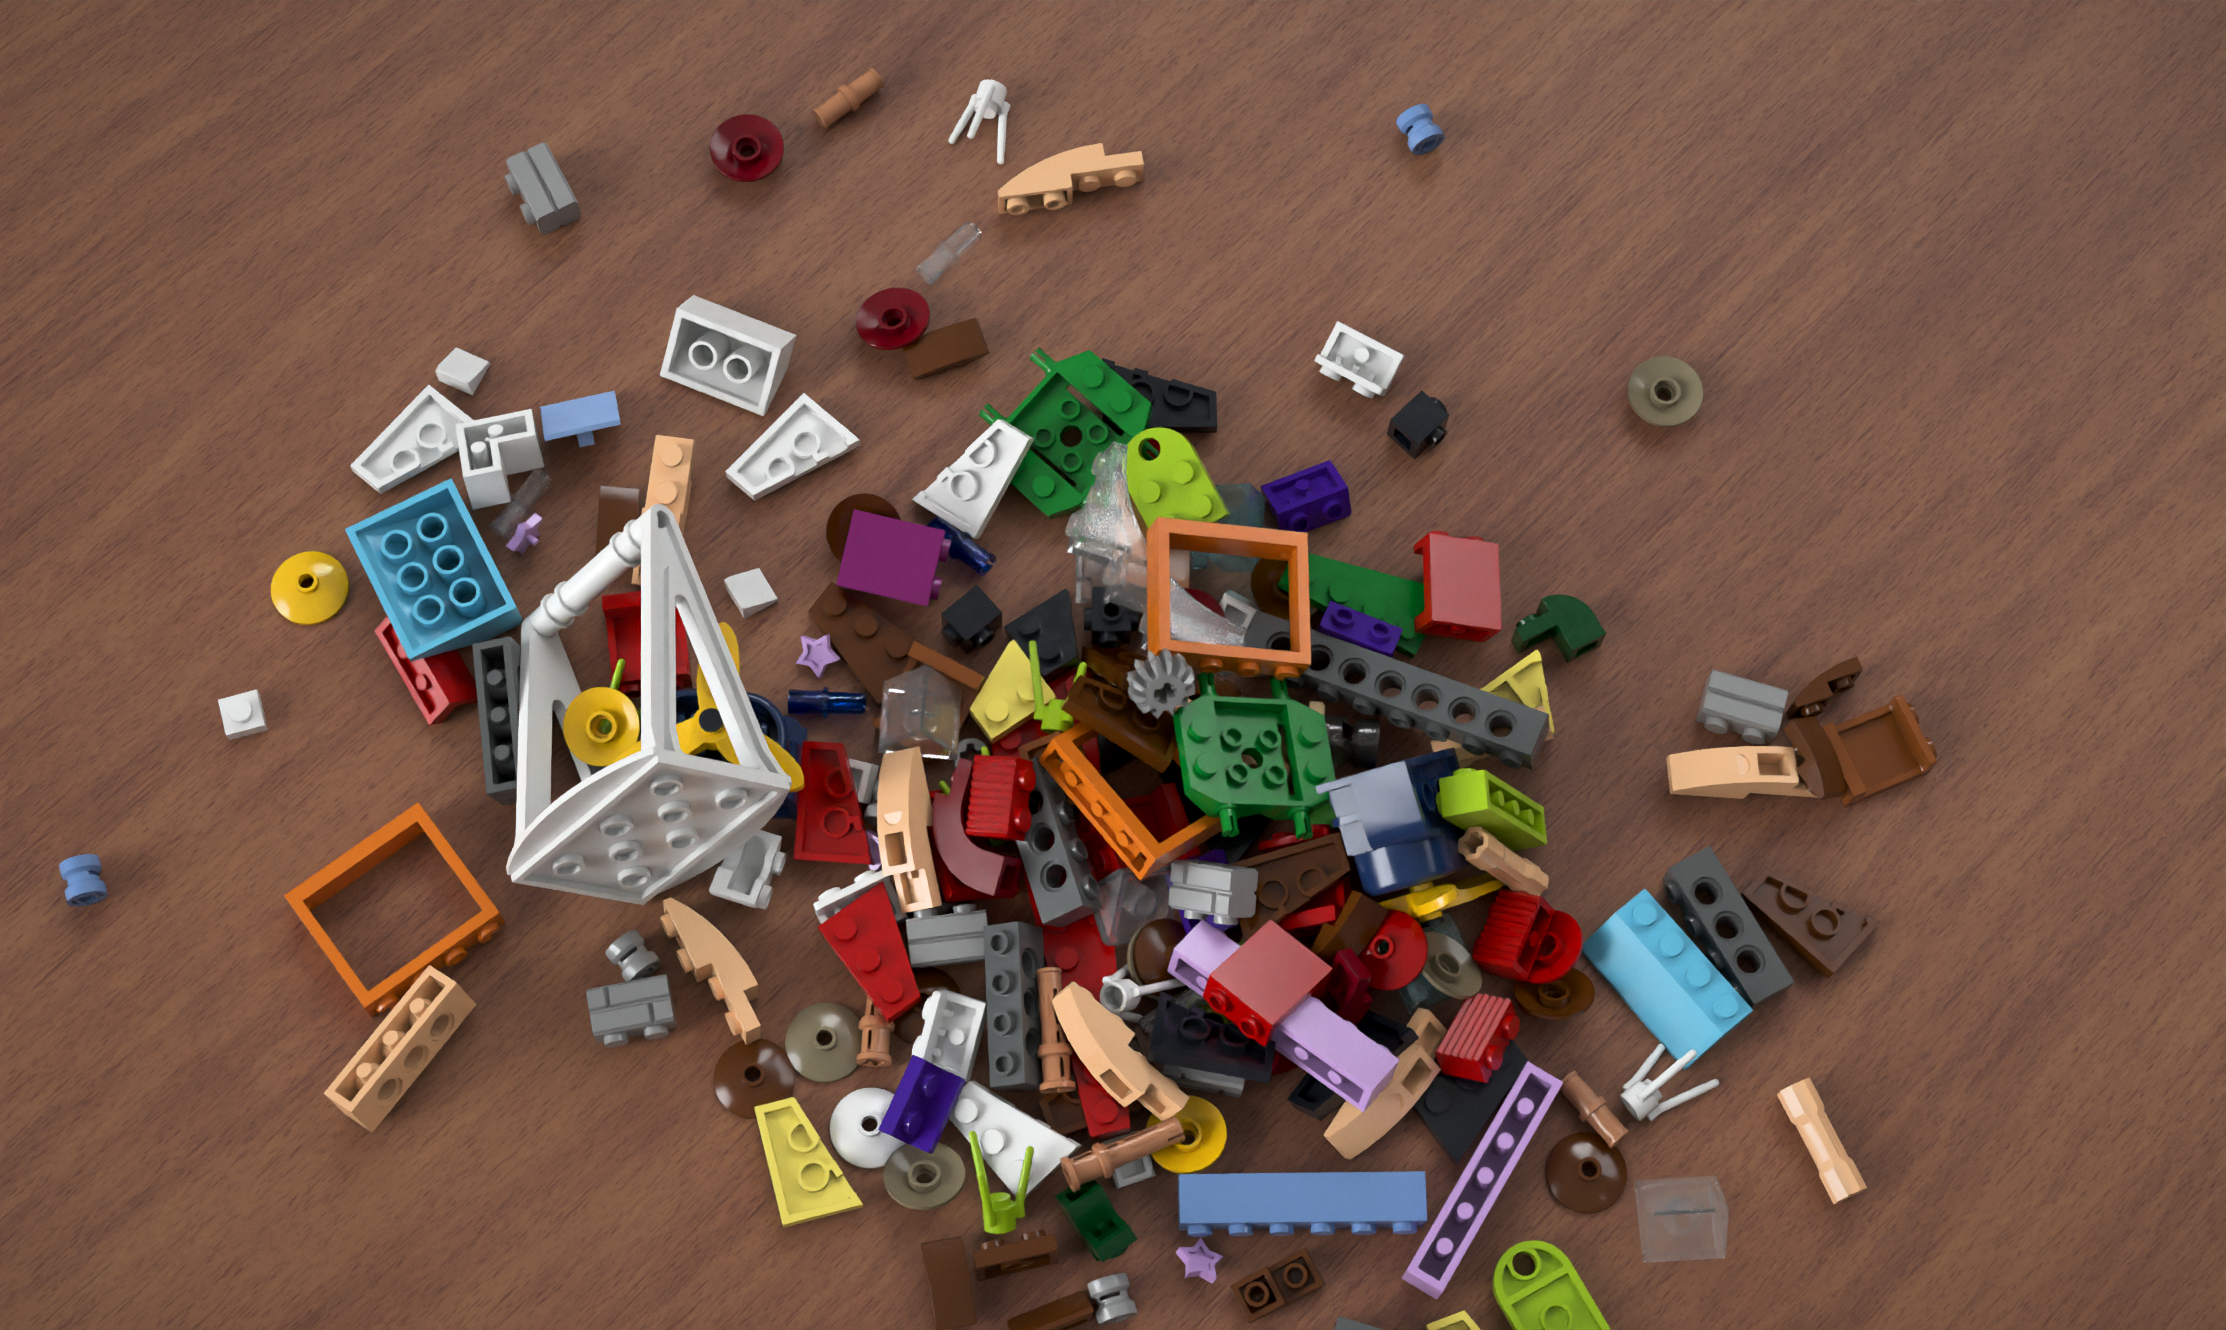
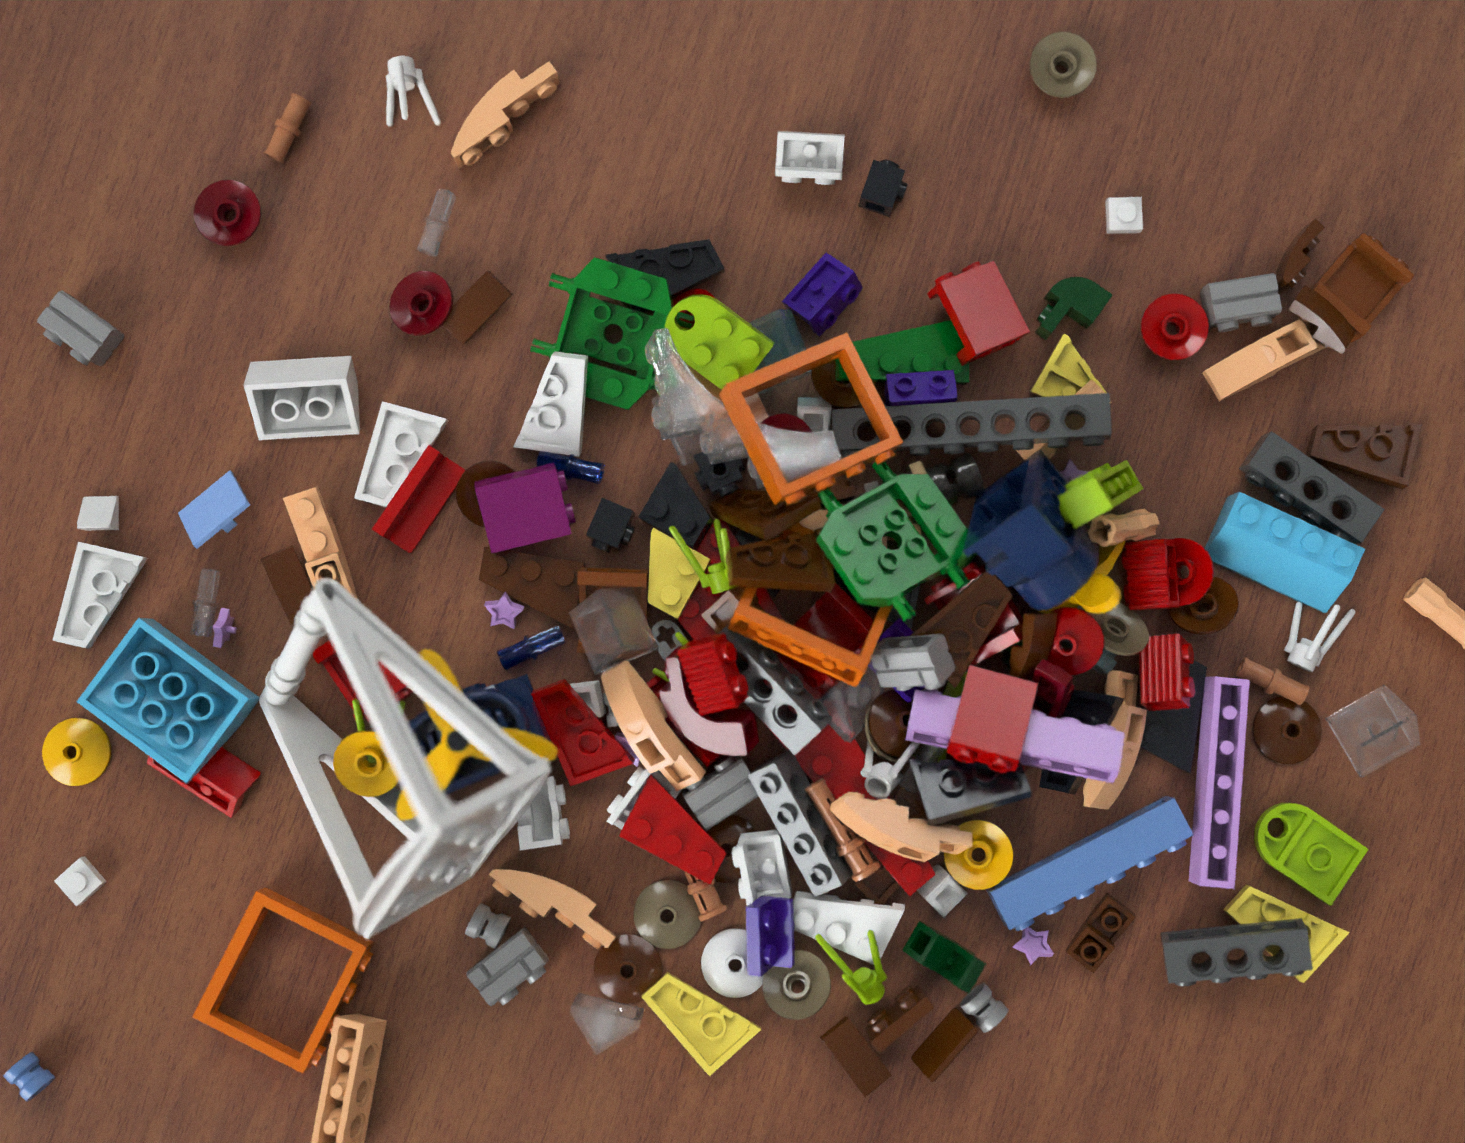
camera: 20 degrees left, 15 degrees up
(495, 449) = (158, 576): white brick -> none
(498, 706) = (270, 773): dark grey brick -> none
(704, 1110) = (604, 1020): none -> clear slope
(750, 592) = (425, 585): white slope -> none
(788, 505) = (419, 500): none -> red panel
(1106, 1158) = (929, 910): nougat pin -> none
(1161, 683) = (797, 523): light grey gear -> none
(1660, 567) = (1124, 215): none -> white plate
(1664, 683) = (1188, 319): none -> red dish

